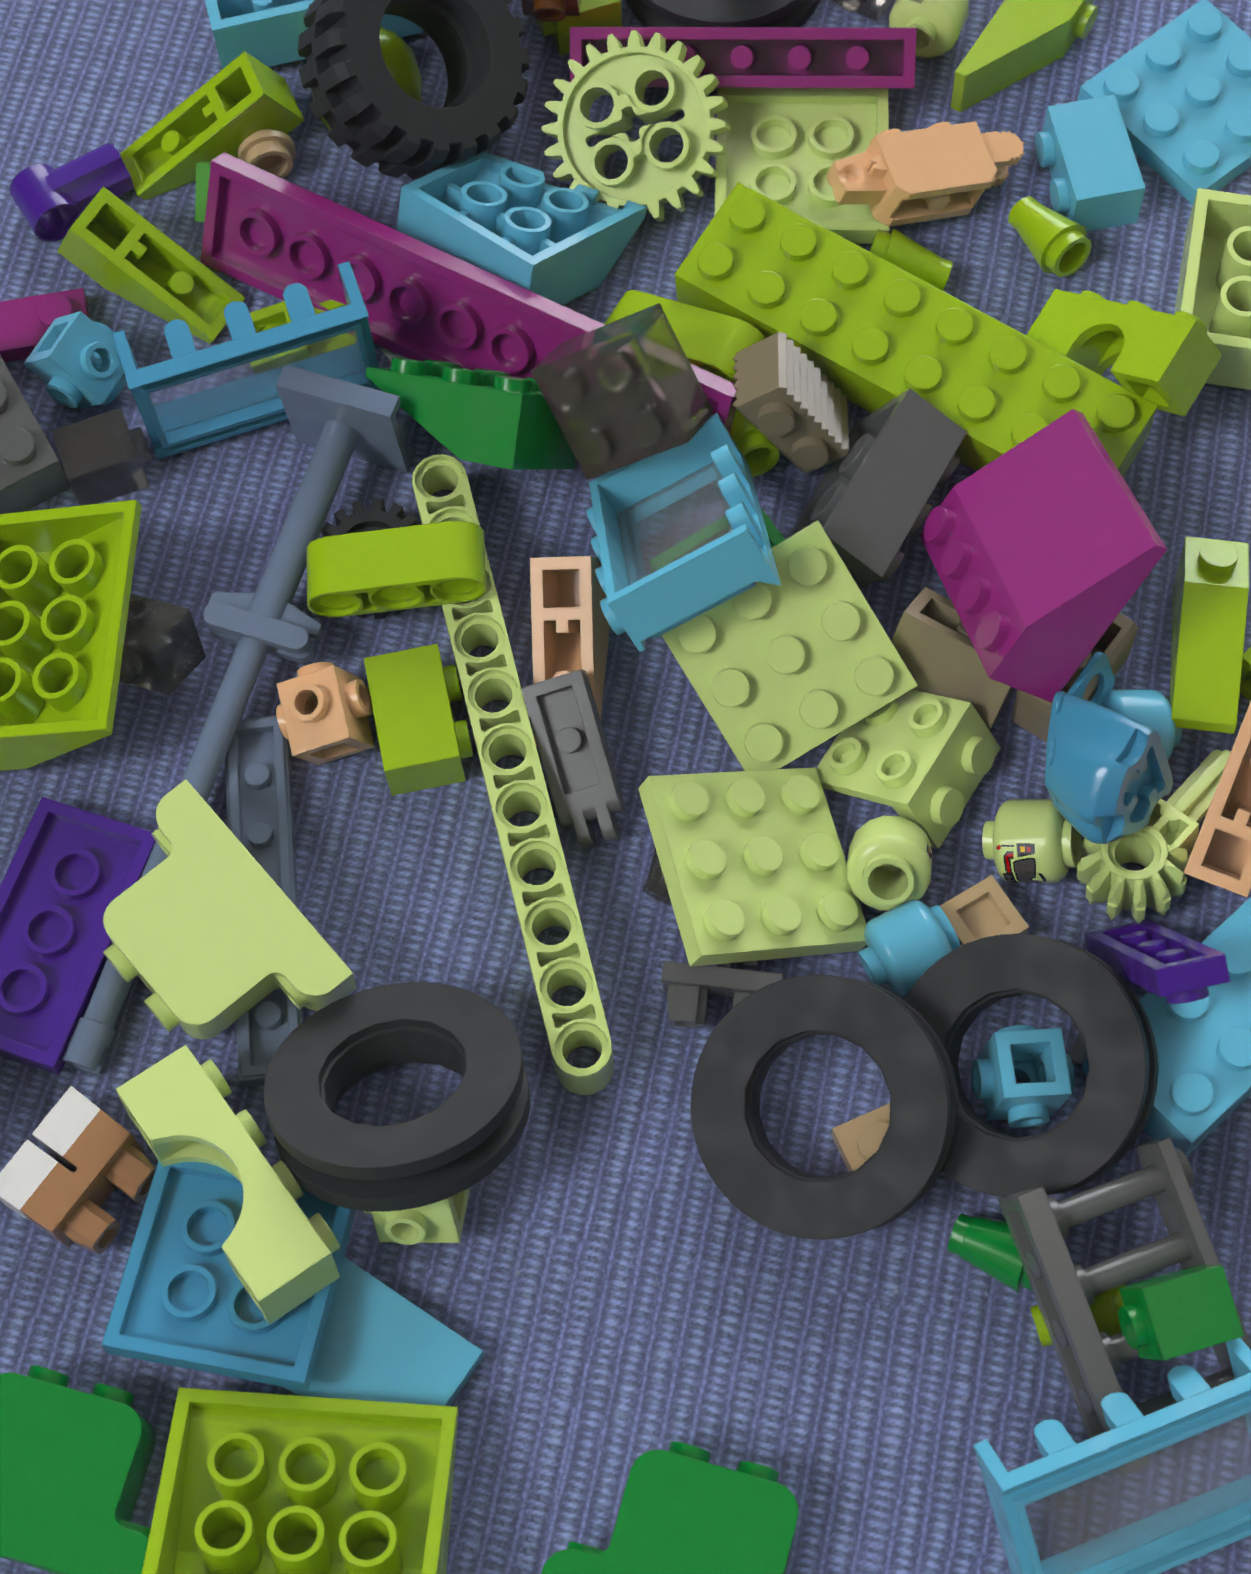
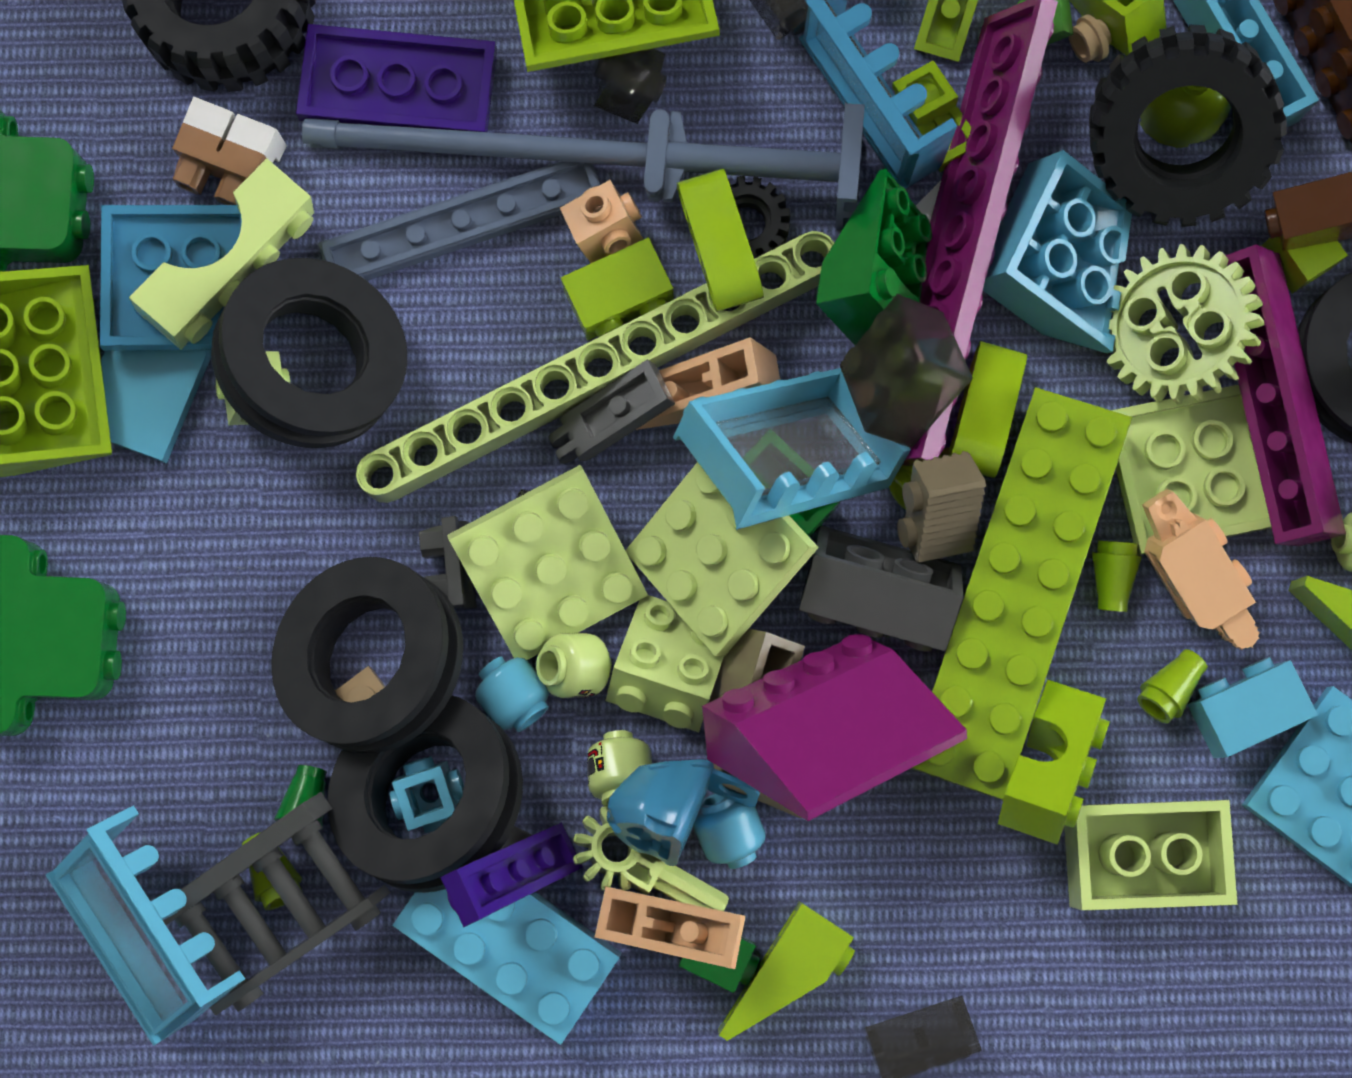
camera: 75 degrees right, 15 degrees up
(215, 928) = (412, 192): yellowish green brick -> none
(983, 913) = (549, 743): tan plate -> none
(1179, 1312) = (253, 933): green brick -> none
(1208, 633) = (817, 875): lime slope -> none

